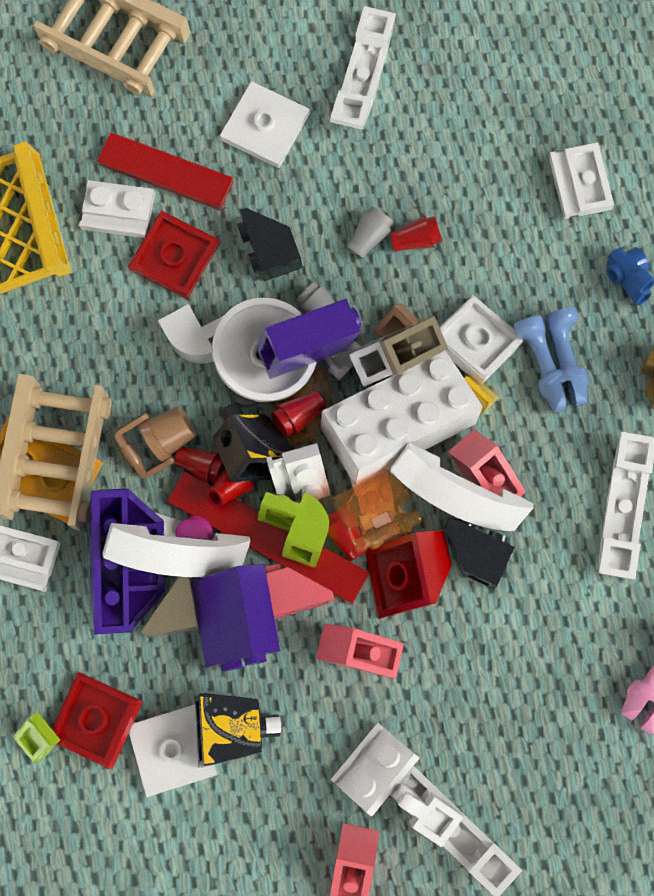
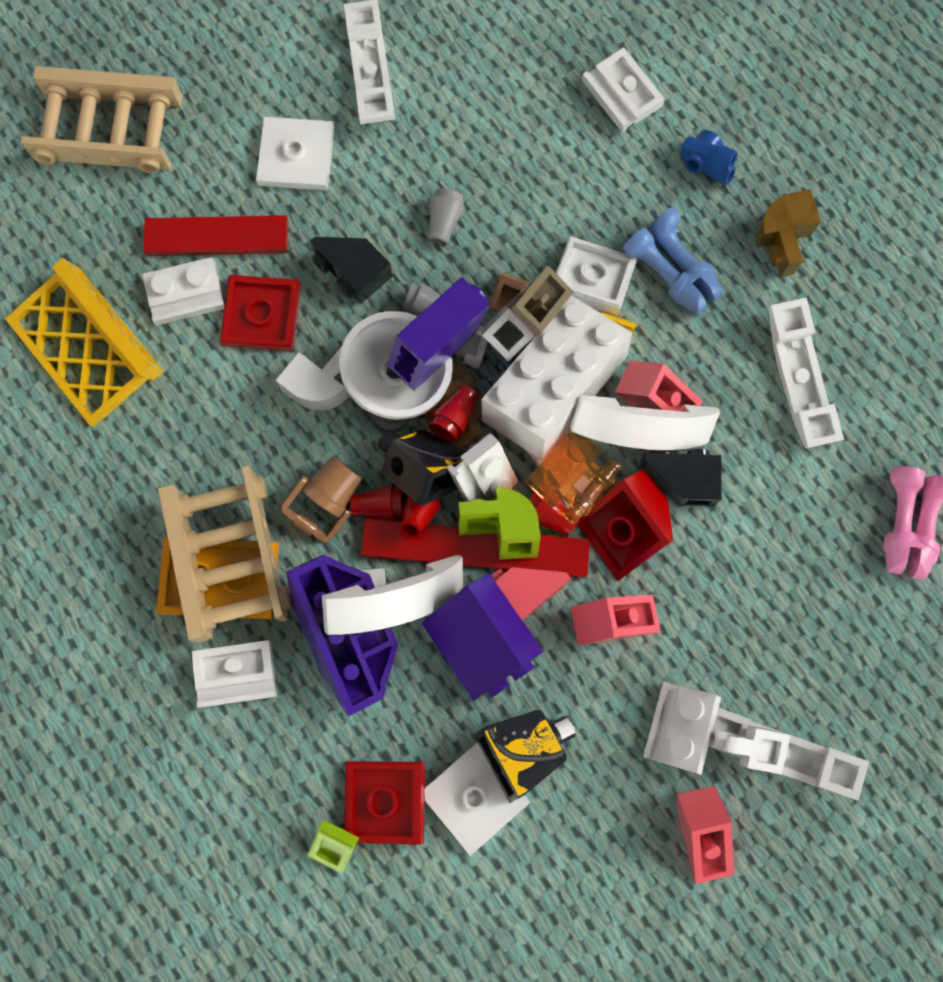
camera: 30 degrees left, 0 degrees up
(175, 612) = (419, 659): dark tan slope -> none
(195, 528) = (401, 568): dark pink tile -> none
(417, 235) = (491, 200): red cone -> none

